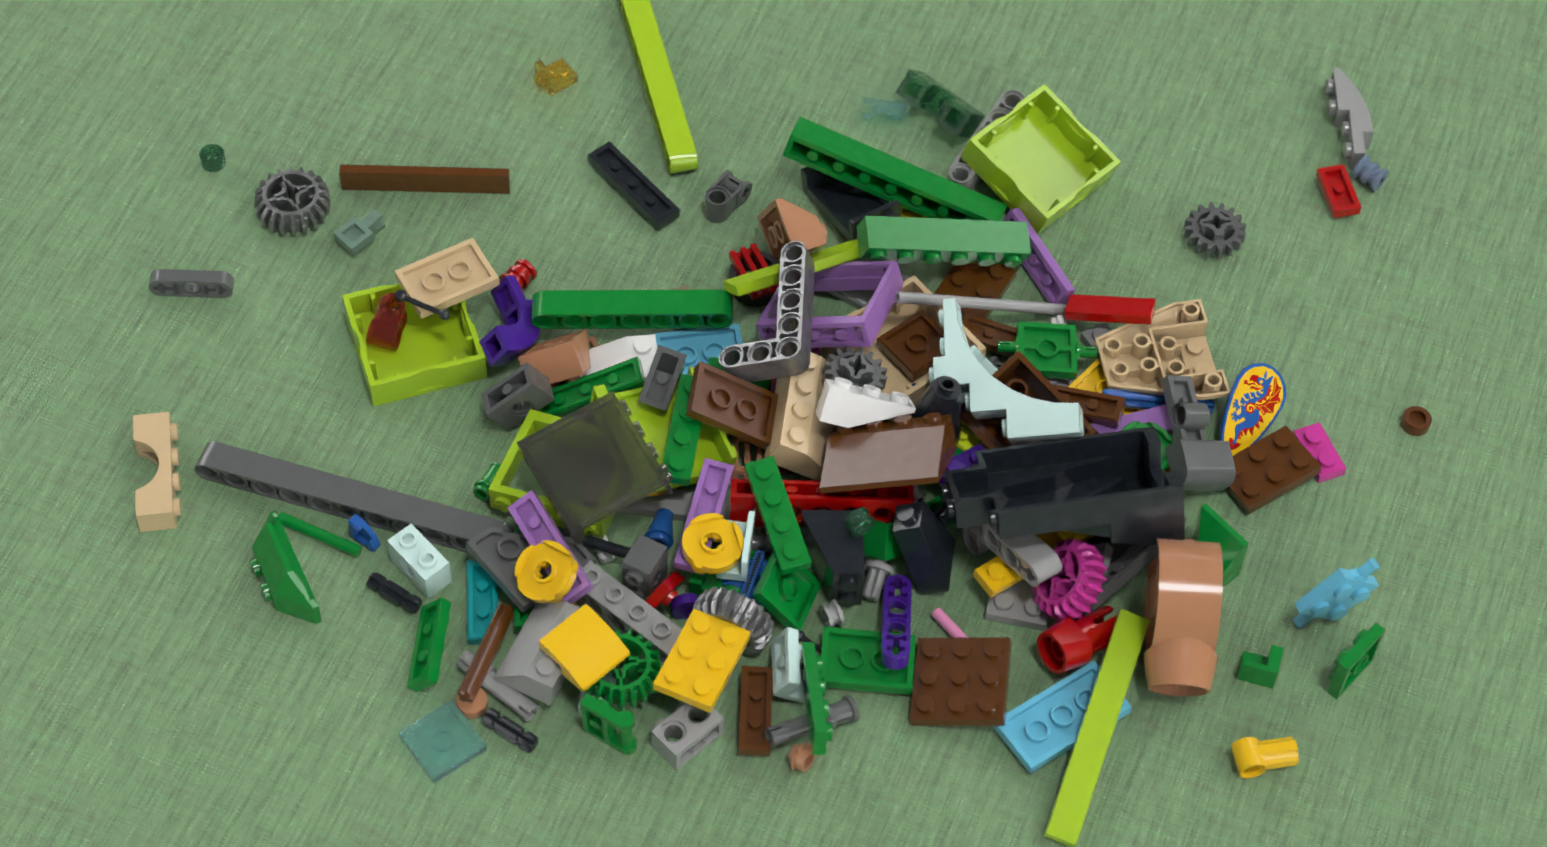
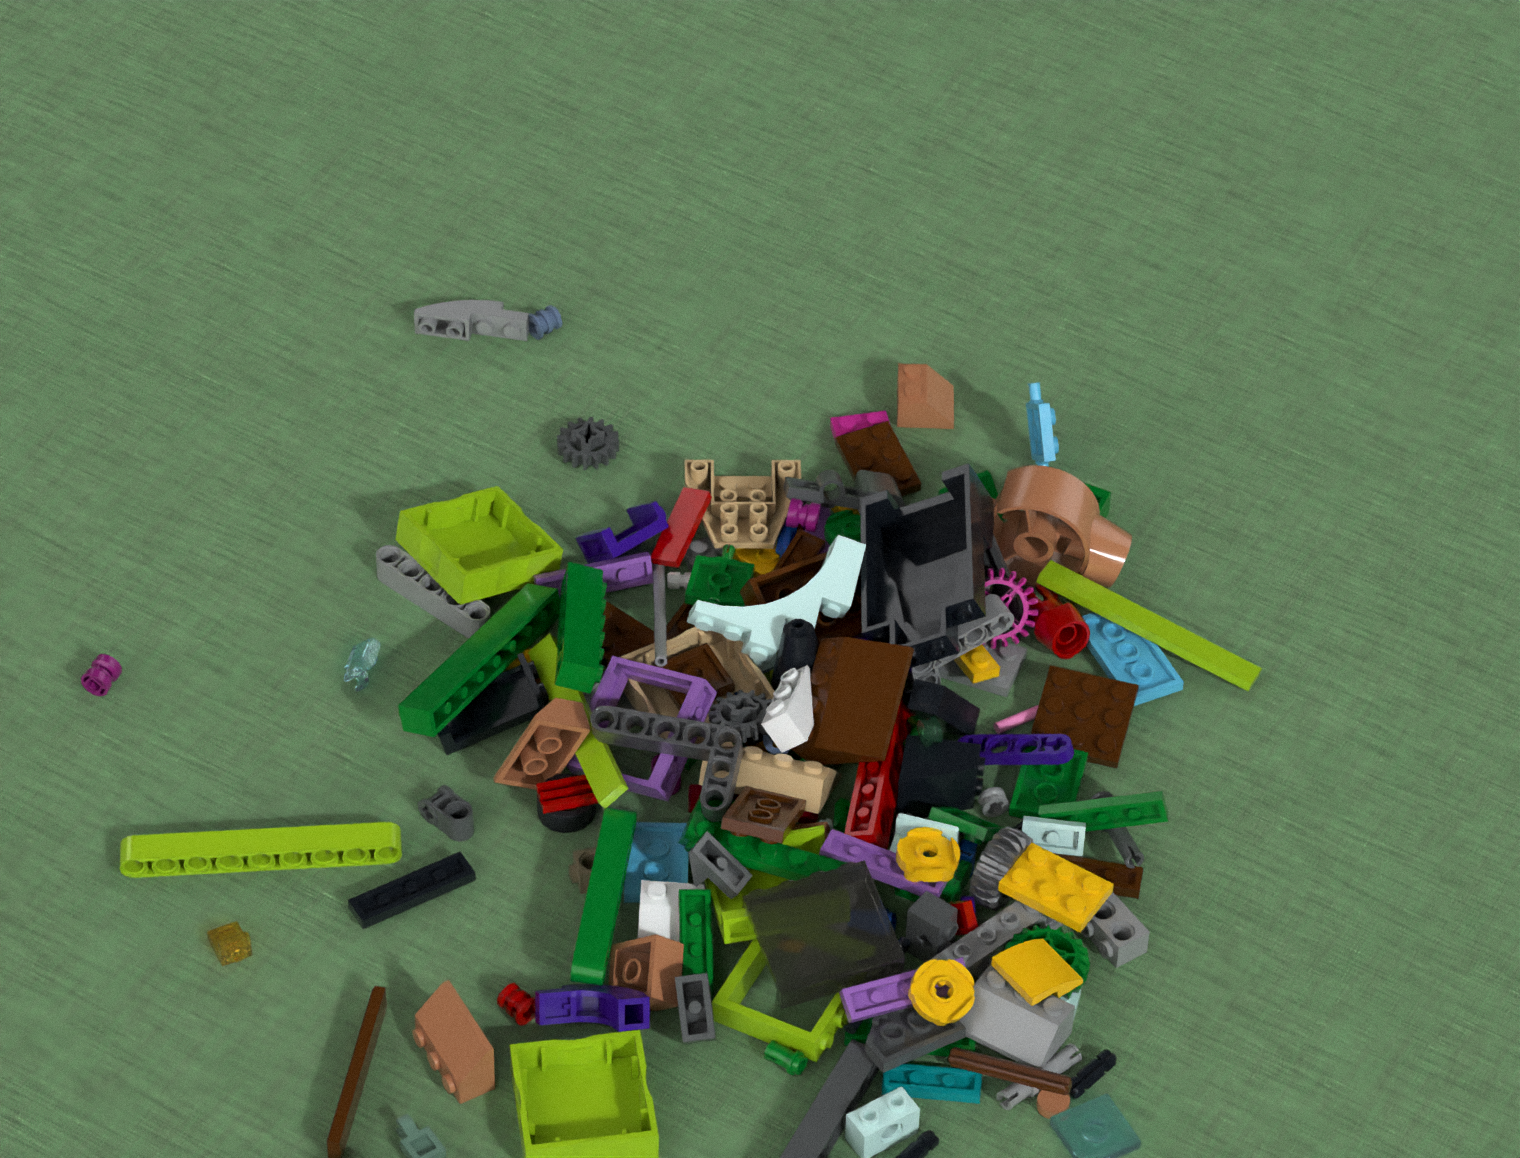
camera: 80 degrees left, 10 degrees down
(388, 323) = (565, 1120): clear red piece -> none
(401, 296) = (556, 1081): black hinge -> none
(429, 644) = (984, 1126): green plate -> none
(448, 276) = (532, 1045): tan plate -> none
(477, 221) = (455, 1044): none -> nougat slope
(602, 721) = (1107, 980): green plate -> none
(777, 515) = (903, 798): green plate -> none
(801, 757) = (1150, 847): nougat plate -> none
(933, 97) = (374, 614): clear green arch -> none
(1068, 256) = (602, 545): none -> dark purple panel
(1147, 400) = (805, 515): none -> magenta wheel
(1252, 405) = (809, 452): shield -> none
(1256, 756) = (1184, 528): yellow piece -> none
(1338, 191) = (558, 348): red plate -> none
(1356, 660) = (1104, 438): green plate -> none
(1373, 498) = (923, 398): none -> nougat slope
(1416, 421) = (837, 356): reddish brown tile -> none

